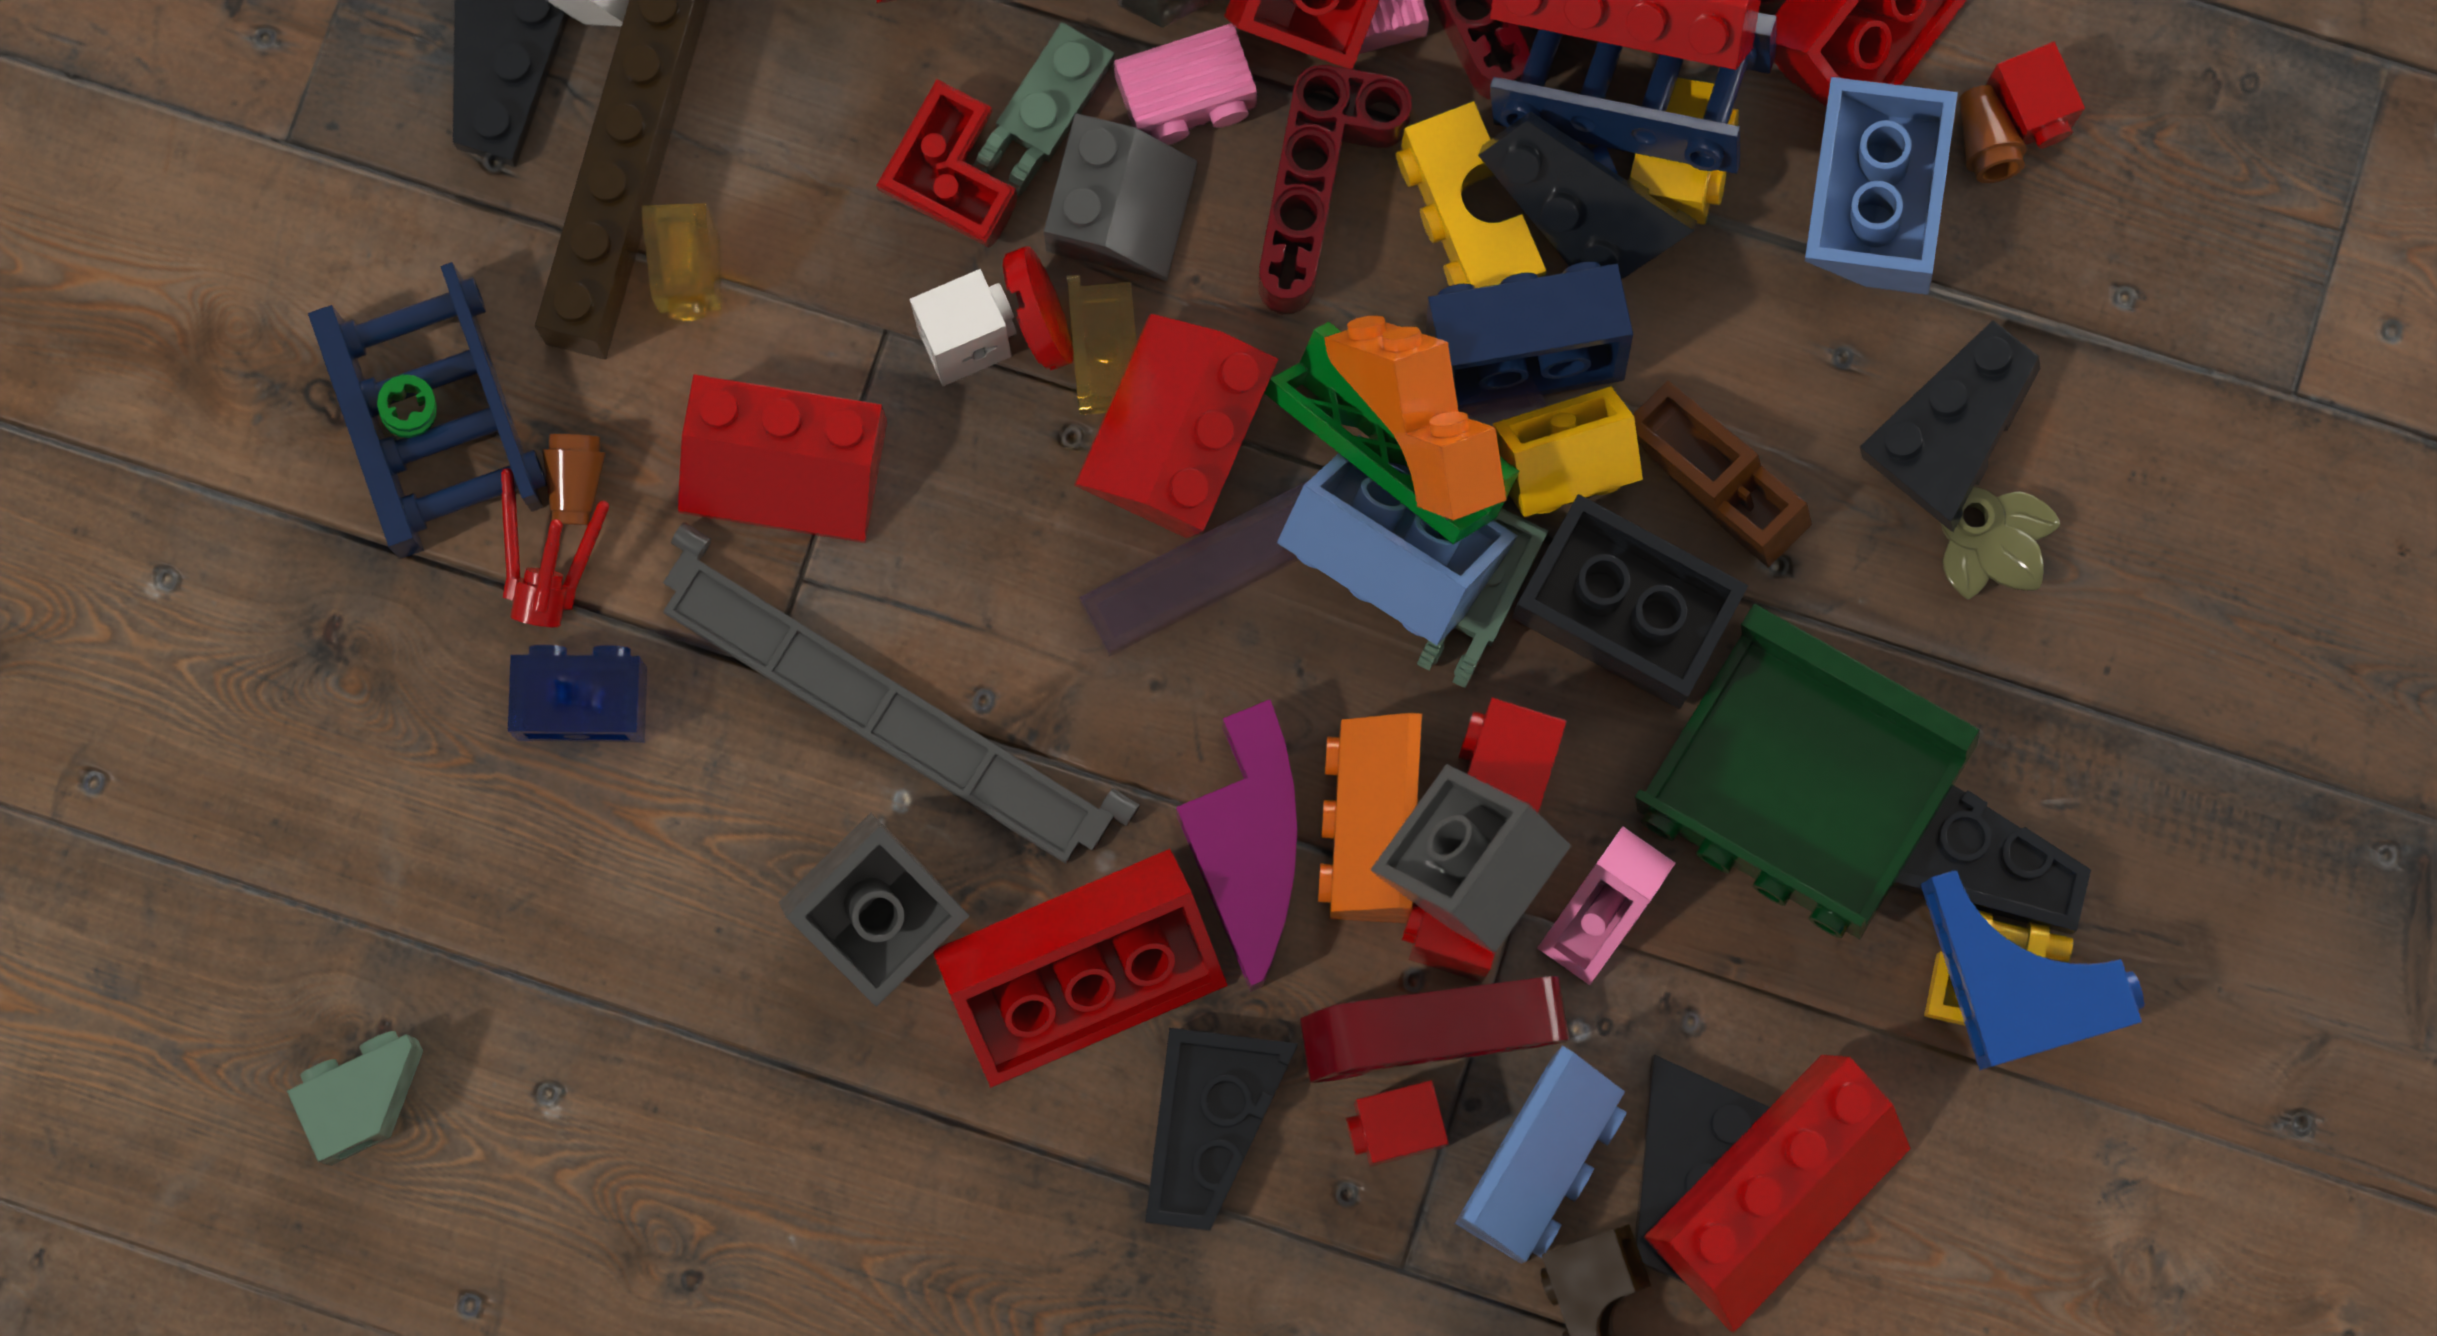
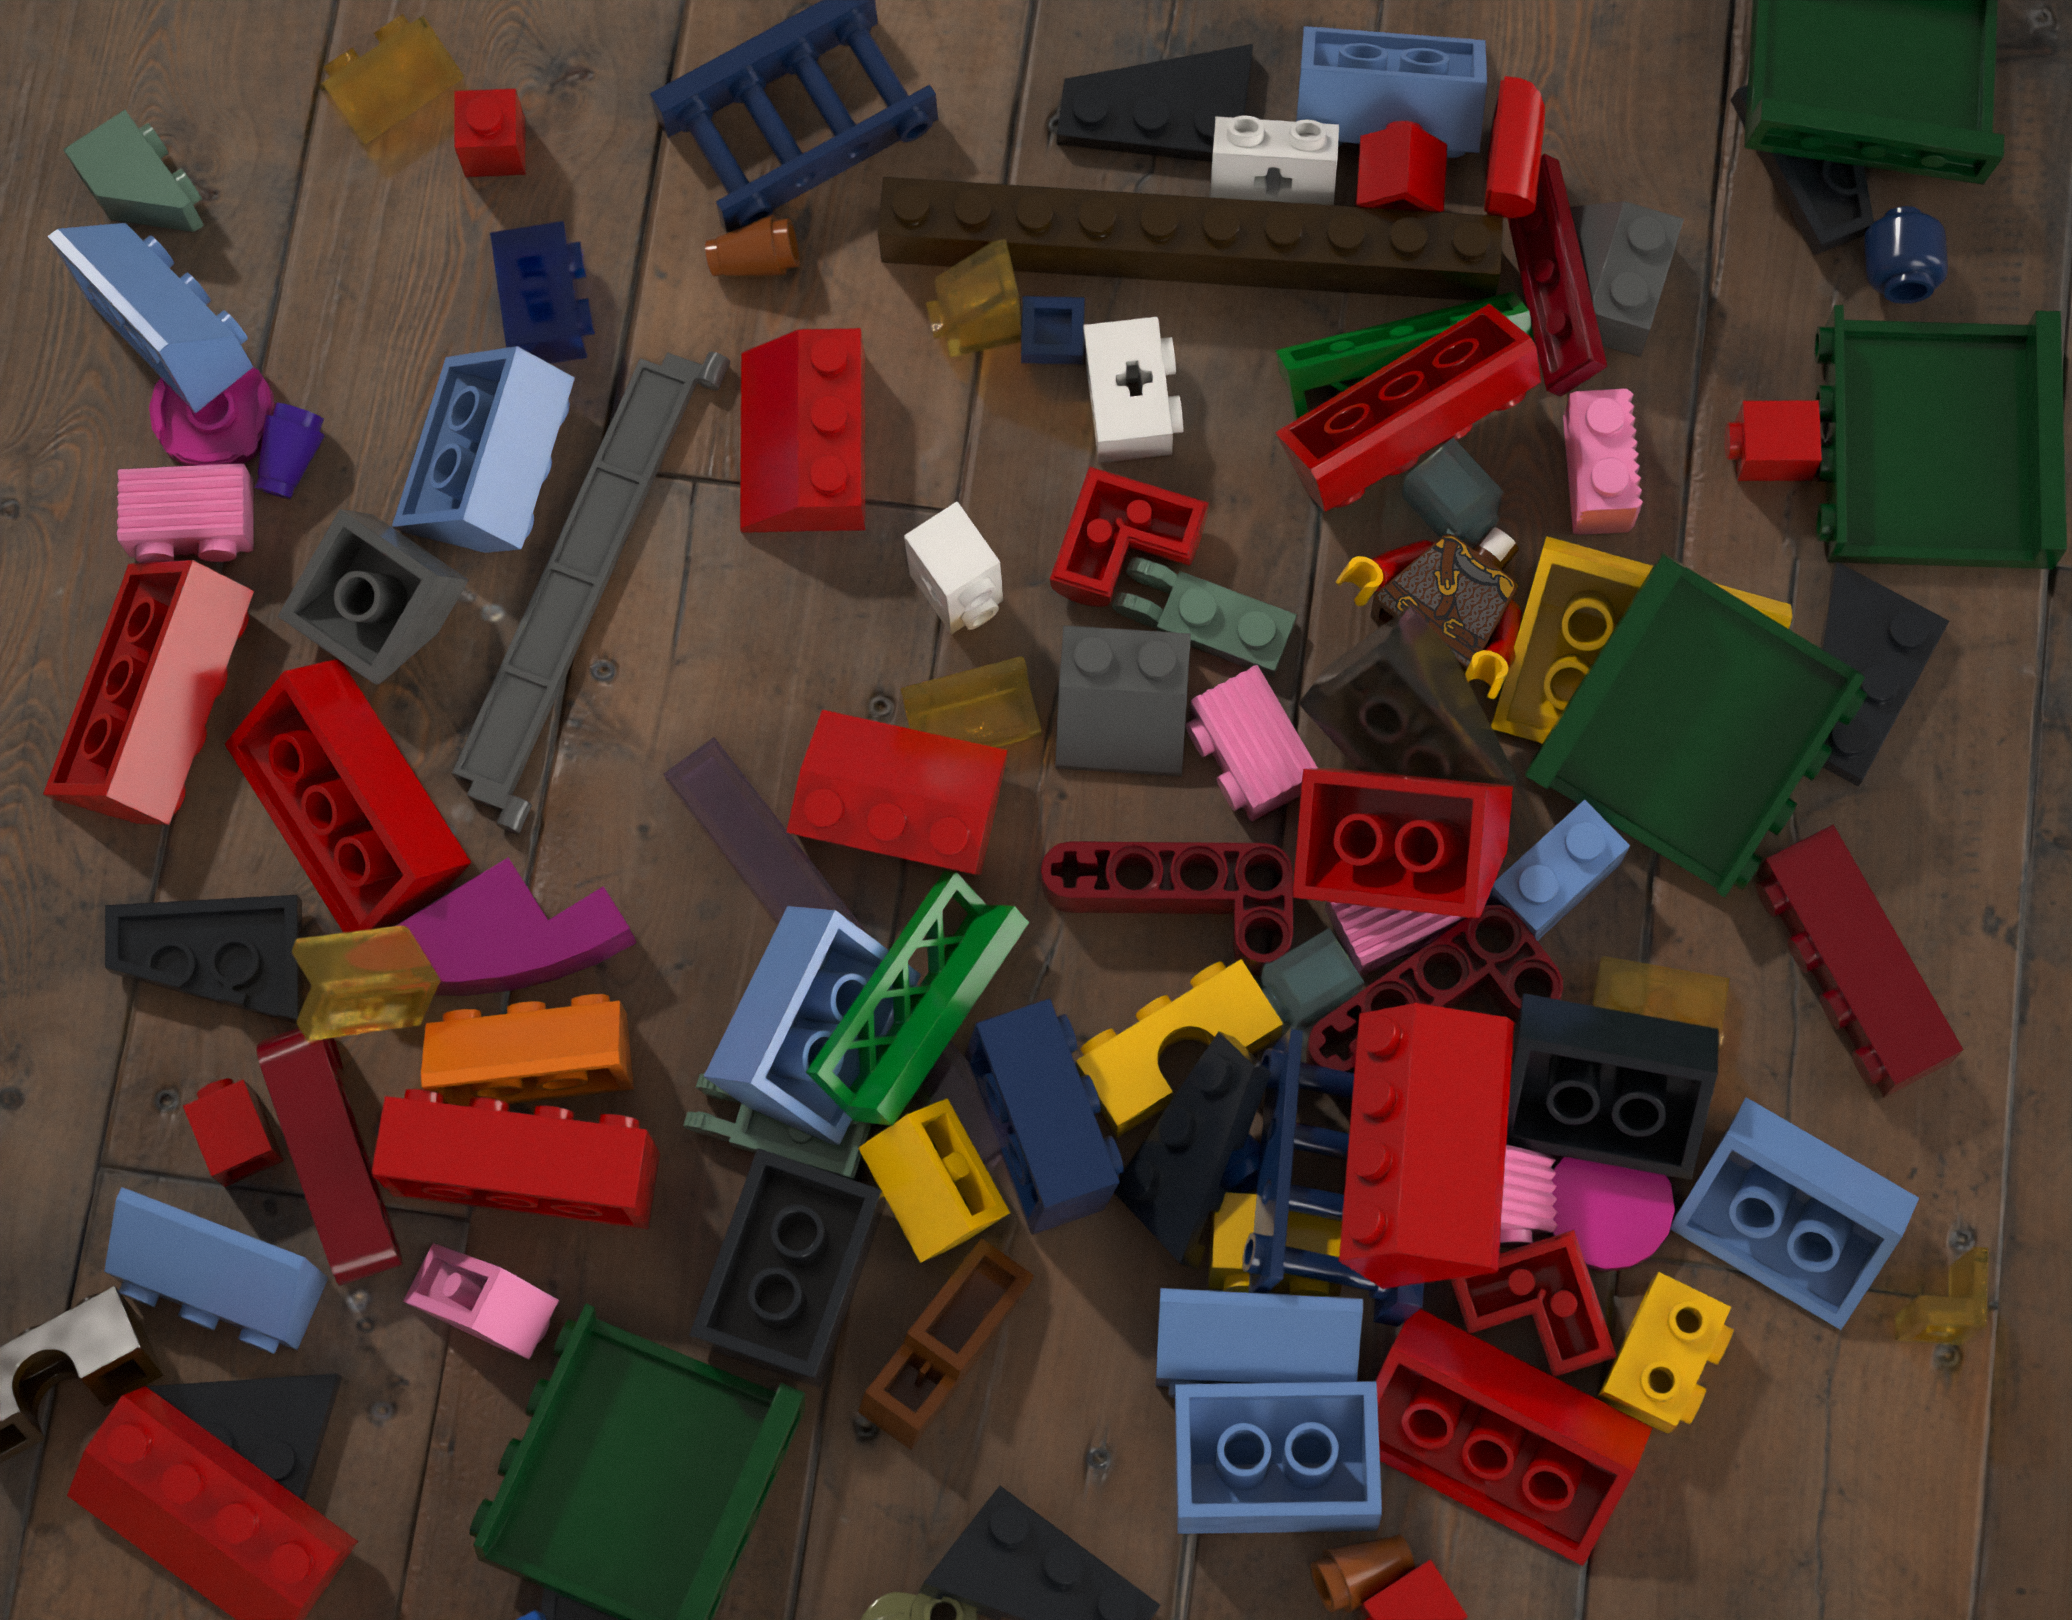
camera: 85 degrees right, 5 degrees down
(299, 818) = (390, 78): none -> clear yellow bracket
(389, 720) = (490, 132): none -> red brick
(396, 390) = (803, 73): green bush -> none
(520, 1086) = (155, 309): none -> medium blue slope
(540, 594) = (638, 239): red plant -> none
(630, 1054) = (222, 431): none -> dark pink tile
(691, 978) = (287, 448): none -> dark purple cone
(728, 196) = (1052, 330): none -> dark blue plate
(734, 779) = (485, 450): none -> medium blue slope
(741, 1089) = (186, 512): none -> bright pink brick
(829, 150) = (1131, 354): none -> white brick
(925, 1153) = (150, 691): none -> red slope
(1039, 308) = (1002, 629): red tile -> none
(1286, 954) = (364, 982): none -> clear yellow panel
(1413, 392) = (938, 1004): orange arch -> none
(1431, 70) = (1310, 981): none -> clear light blue brick
(1471, 857) = (470, 1129): dark grey slope -> none
(1773, 184) = (1256, 1338): none -> medium blue slope

